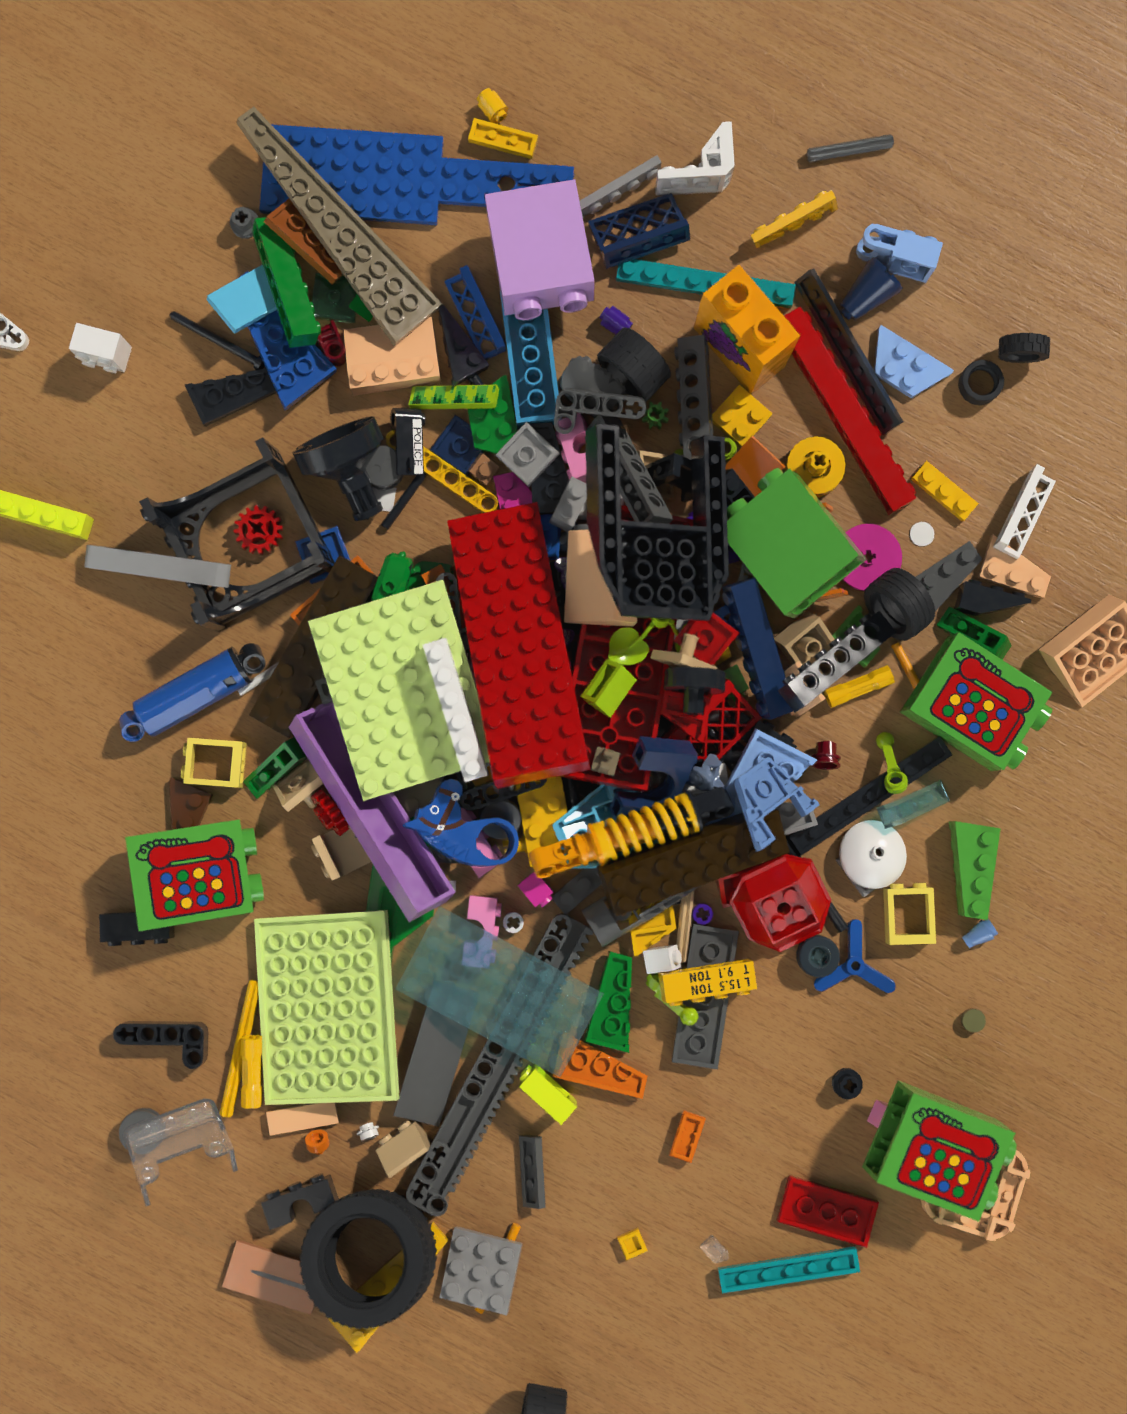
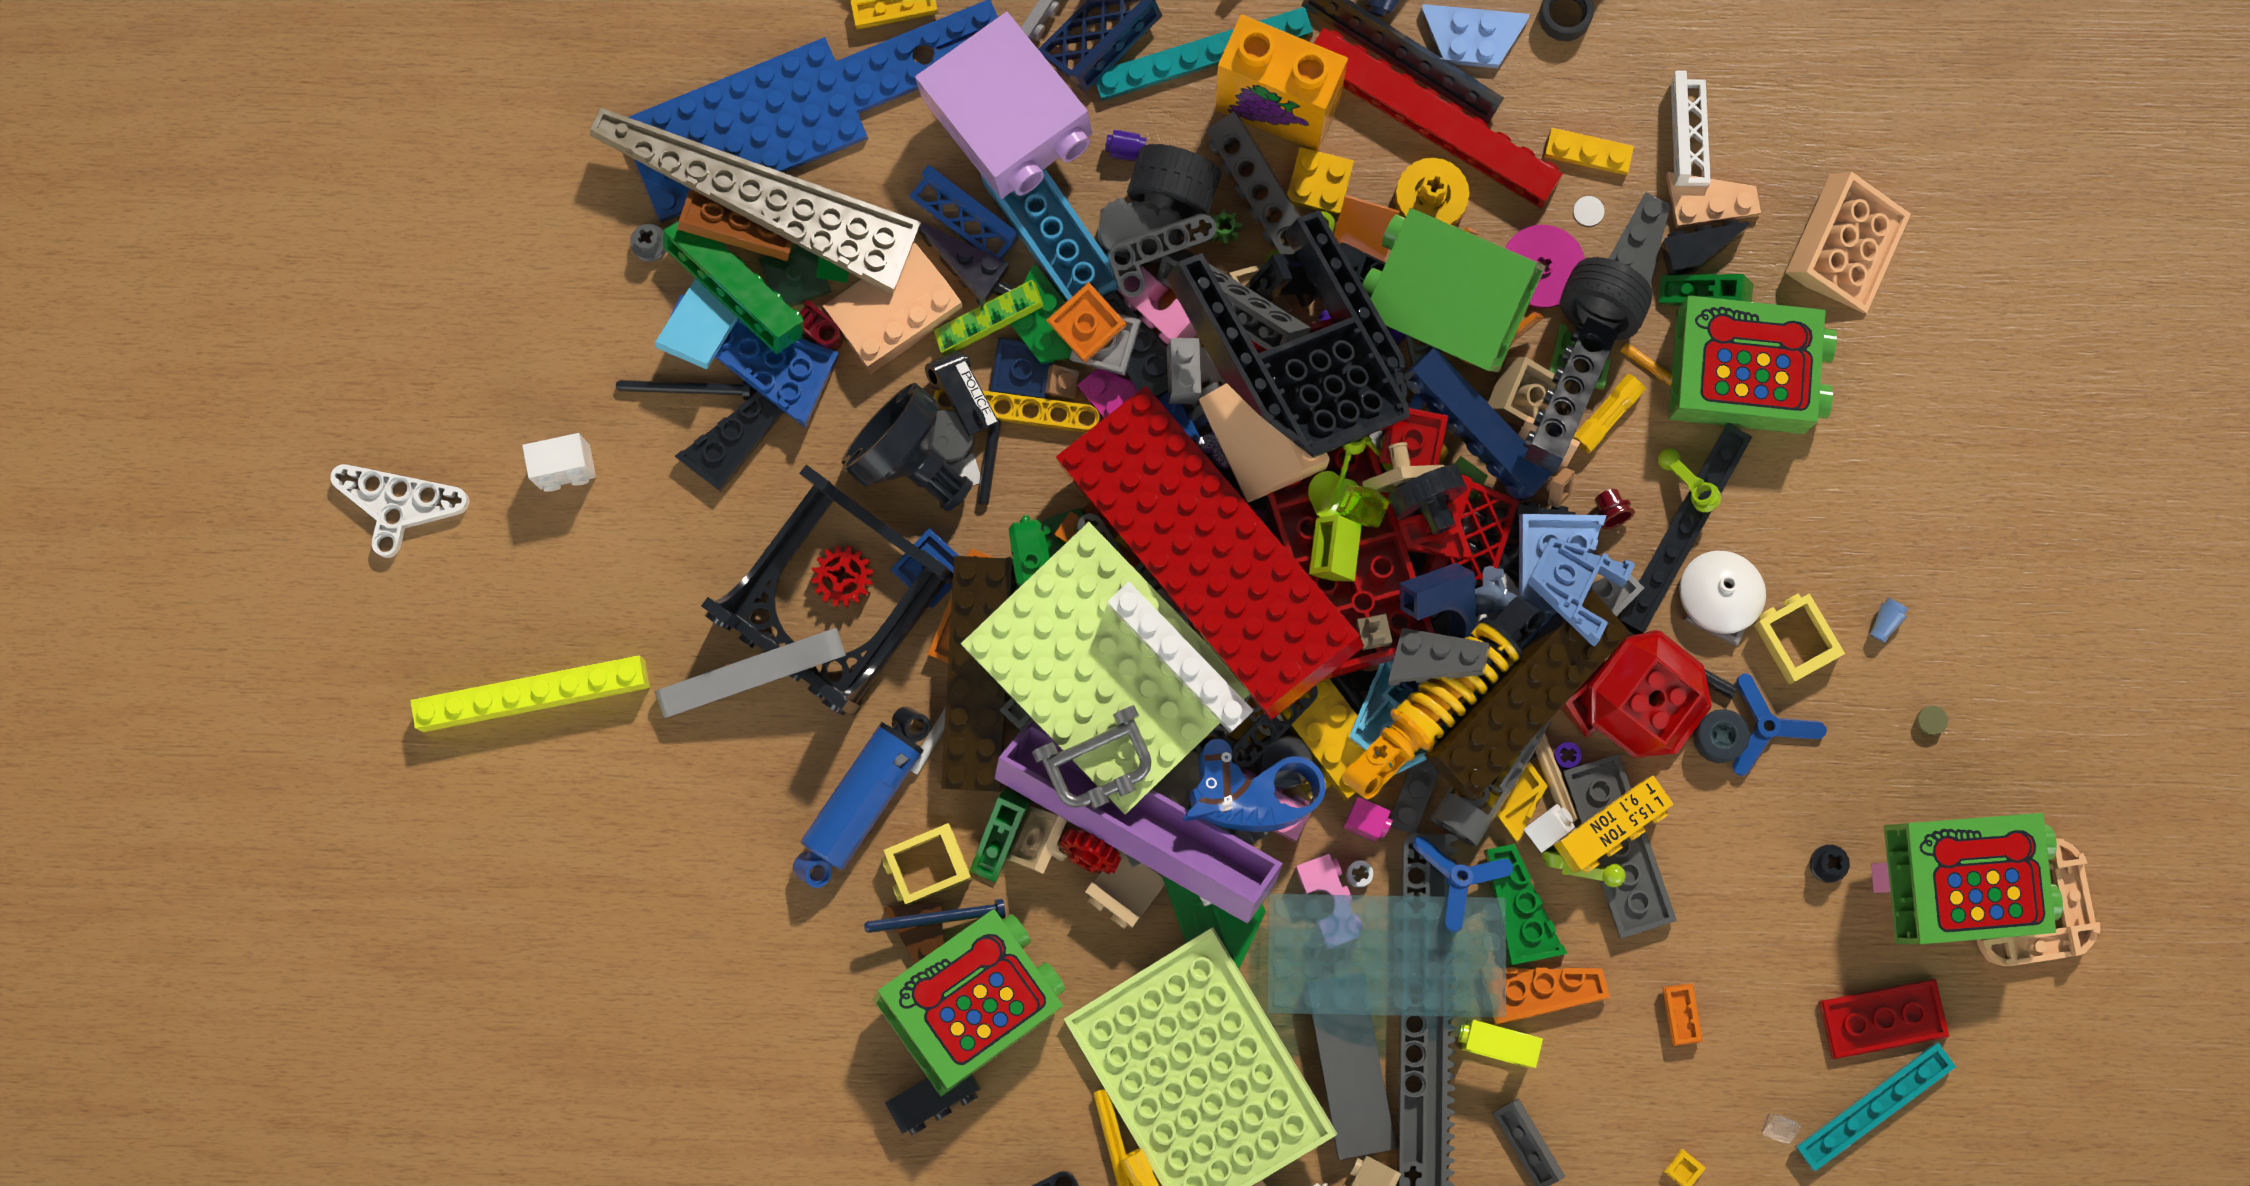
camera: 20 degrees left, 5 degrees down
(200, 803) = (934, 917): none -> dark blue bar
(370, 780) = (1123, 784): none -> flat silver bar
(519, 435) = (1086, 322): none -> orange tile
(573, 970) = (1459, 888): none -> blue piece
(637, 800) = (1434, 655): none -> dark grey wing
(643, 667) = (1363, 505): none -> clear neon green panel
(795, 723) = (1560, 487): none -> medium nougat plate
(913, 804) = (1737, 514): clear light blue slope -> none
(974, 866) = (1841, 547): bright green wedge -> none

